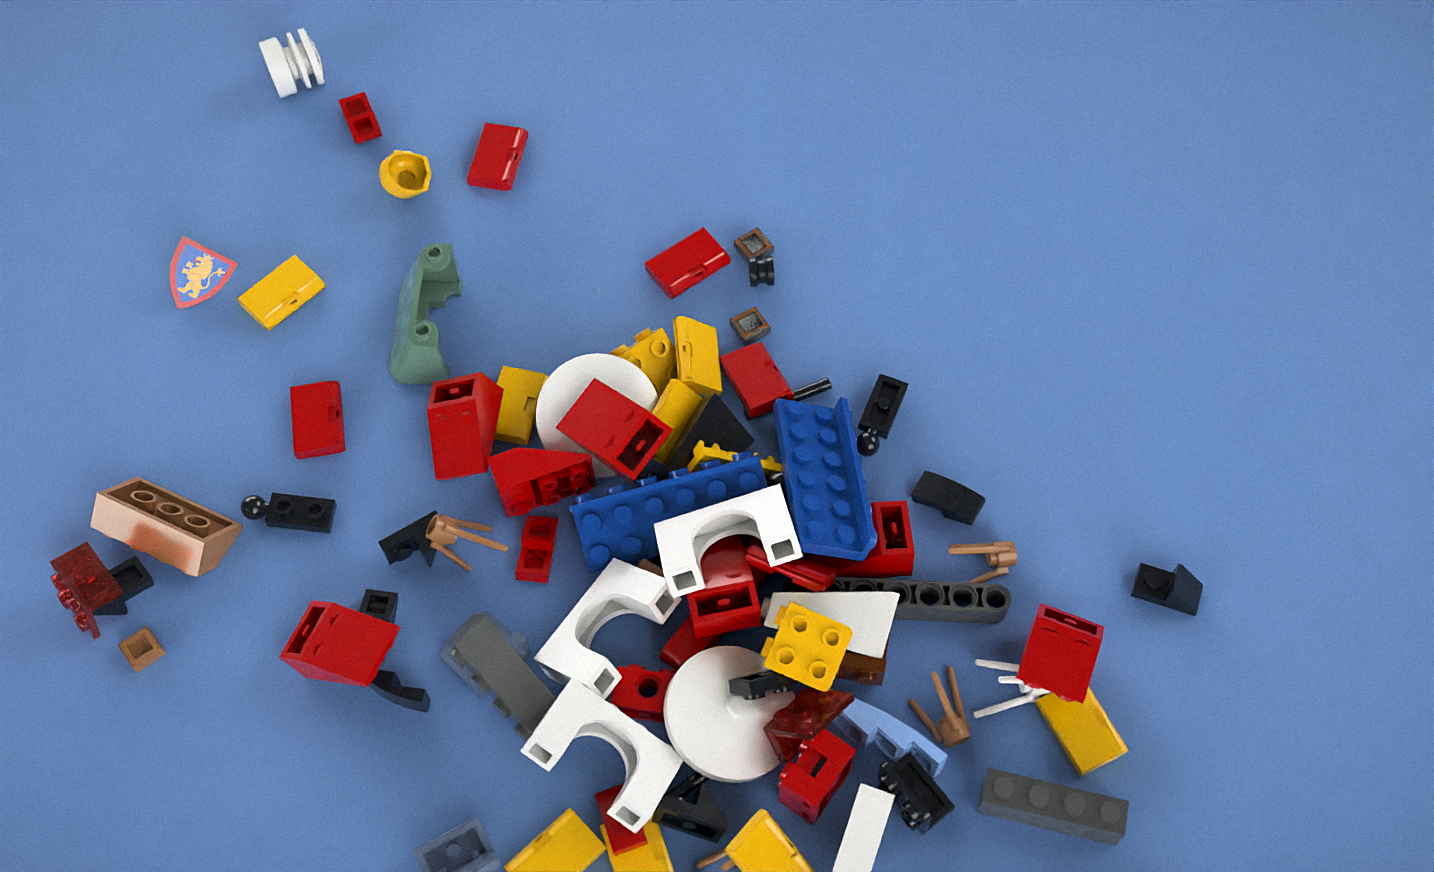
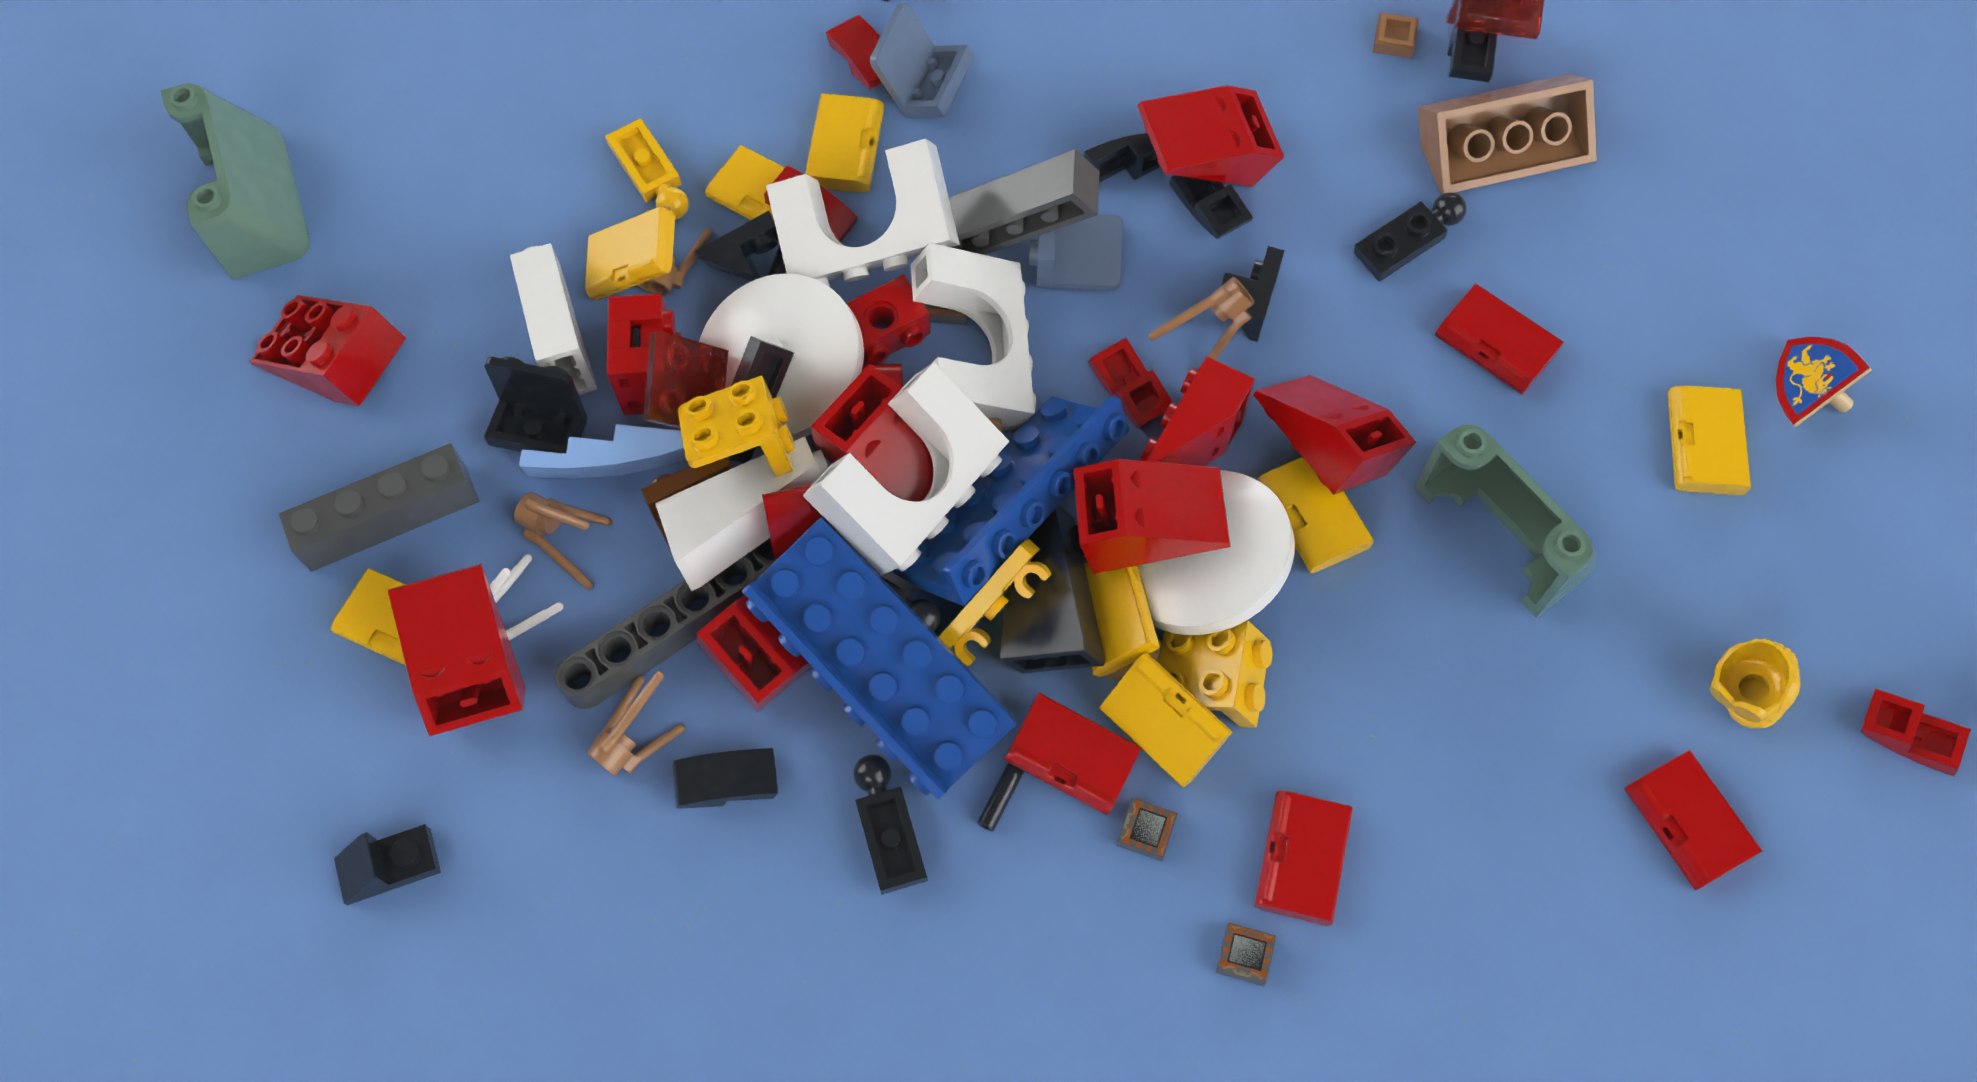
camera: 140 degrees right, 5 degrees up
(761, 271) = (1198, 912): black wheel -> none

